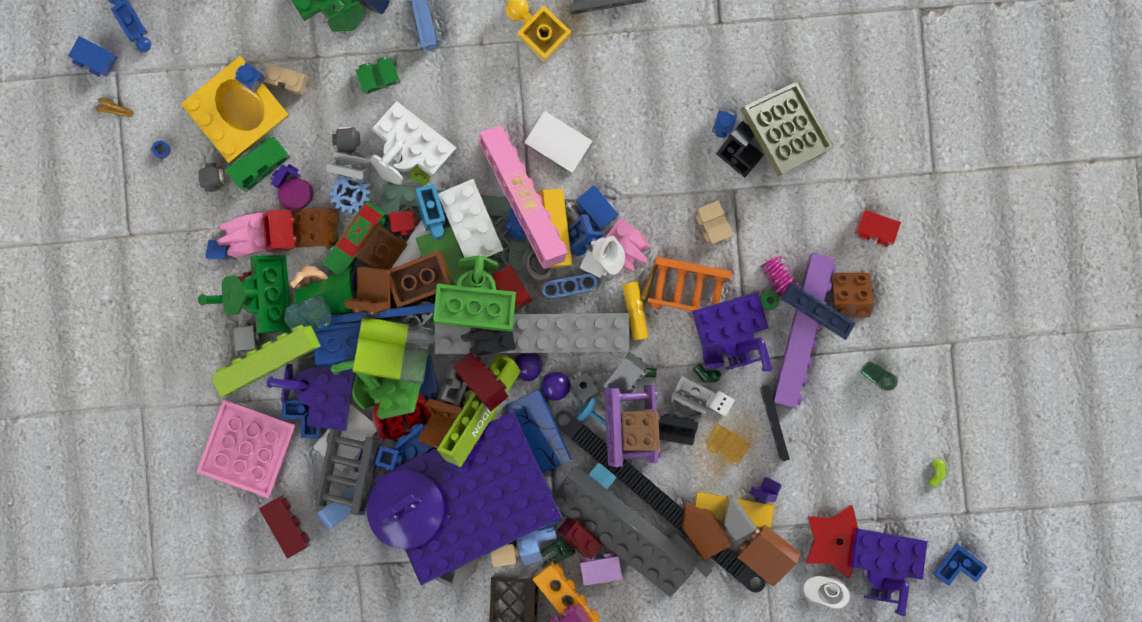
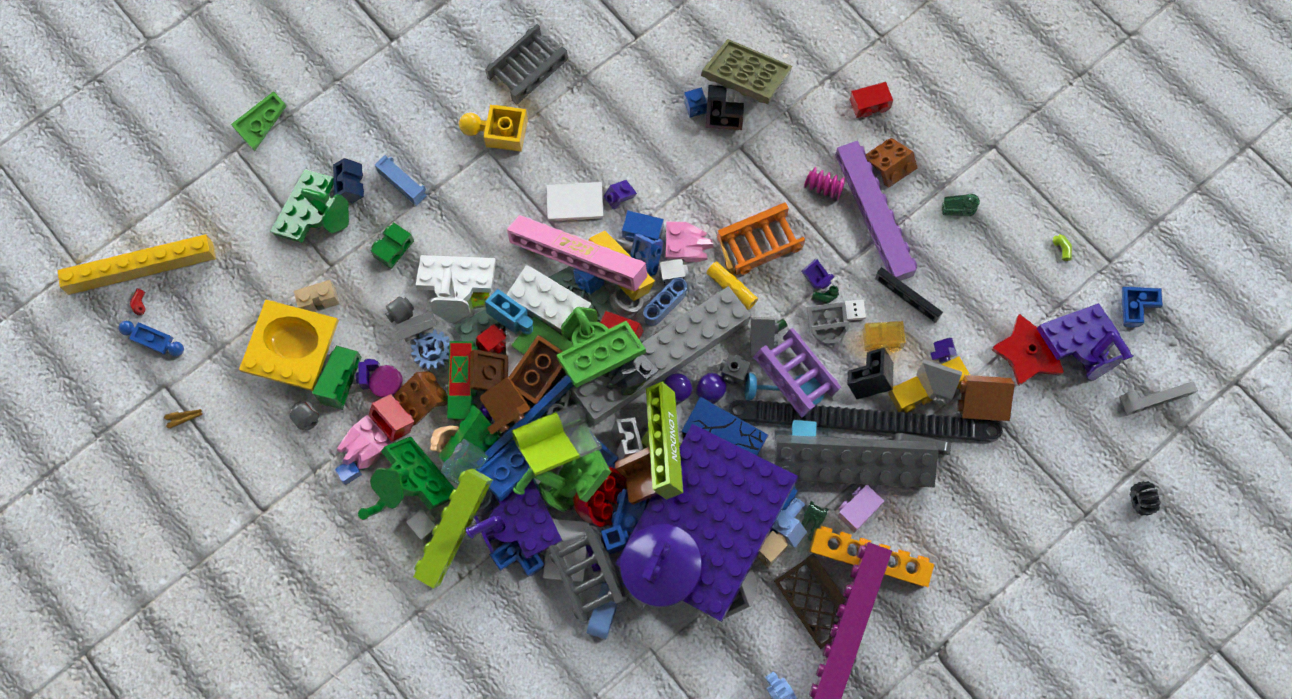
camera: 35 degrees left, 15 degrees down
(91, 55) = (137, 386): blue brick -> none
(165, 154) = (242, 428): blue bush -> none
(246, 448) = (485, 620): bright pink plate -> none
(249, 77) = (285, 307): blue brick -> none
(285, 526) = (566, 662): dark red brick -> none
(481, 381) = (649, 412): dark red brick -> none
(579, 538) = (823, 492): dark red brick -> none
(600, 162) = (619, 193): none -> dark purple bracket
(609, 254) = (678, 250): white piece -> none
(640, 430) = (808, 366): medium nougat bracket -> none
(677, 430) = (836, 351): black bracket -> none
(691, 475) = (874, 377): none -> black brick
(704, 531) = (920, 413): dark orange tile -> none
(714, 223) = (743, 178): tan brick -> none
(733, 328) = (824, 240): dark purple plate -> none
(764, 300) = (831, 212): green plate -> none
(818, 310) = (875, 185): dark blue tile -> none
(827, 591) = (1055, 394): white piece -> none

